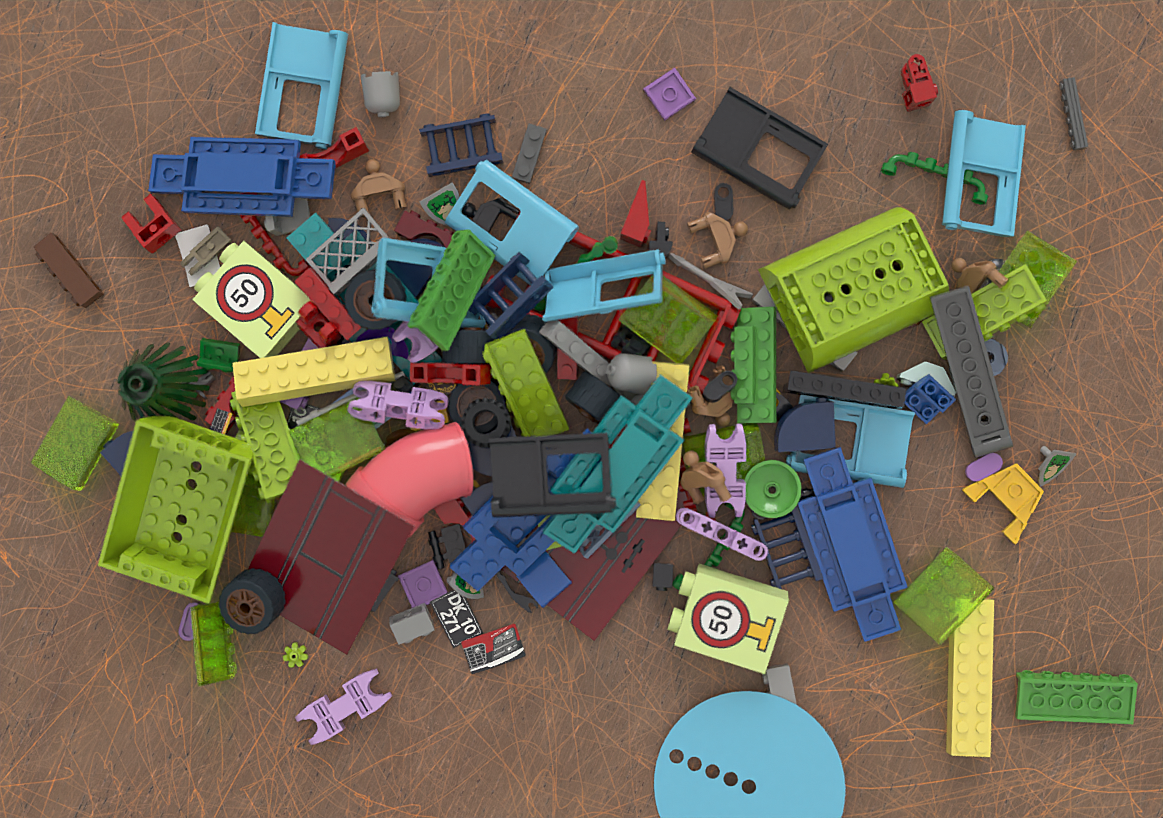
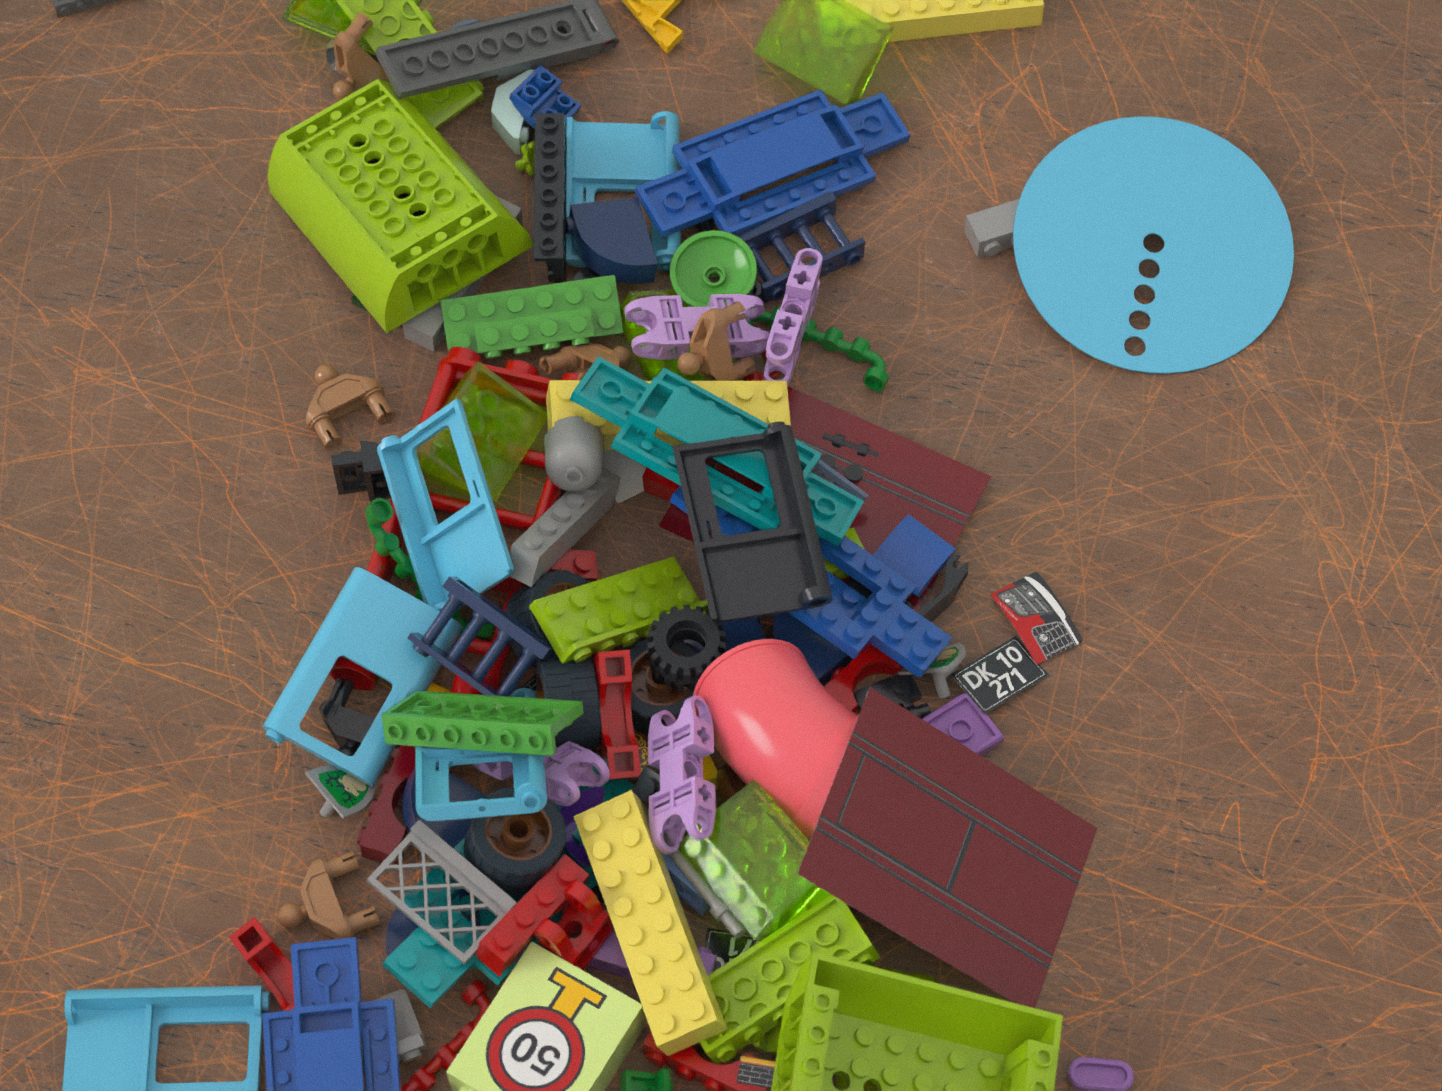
camera: 100 degrees left, 25 degrees down
(212, 644) = (1127, 1021): clear neon green slope -> none
(251, 601) = (1045, 963): black wheel -> none
(298, 652) = (1116, 904): lime plant -> none
(330, 714) = (1194, 829): lavender piece -> none
(381, 92) = (166, 914): light grey cylinder -> none
(411, 624) = (1024, 730): light grey brick -> none
(455, 164) = (270, 789): dark blue fence -> none
(529, 153) = (238, 686): dark grey plate -> none
(592, 397) = (623, 513): black wheel -> none
(634, 346) = (523, 486): black plate -> none
(637, 222) = (324, 507): red slope -> none
(662, 576) = (872, 399): black brick -> none
(669, 94) = (124, 504): medium lavender tile -> none
(717, 389) = (577, 355): black piece -> none
(723, 206) = (292, 404): black piece -> none
(729, 291) = (424, 371): light grey piece -> none
(729, 617) = (914, 292): yellowish green brick -> none
(736, 133) = (182, 407): black piece -> none
(920, 90) = (87, 171): red brick -> none
(930, 166) = (206, 130): green bar -> none
(983, 467) = (631, 31): medium lavender tile -> none
(988, 149) = (167, 80): medium azure piece -> none

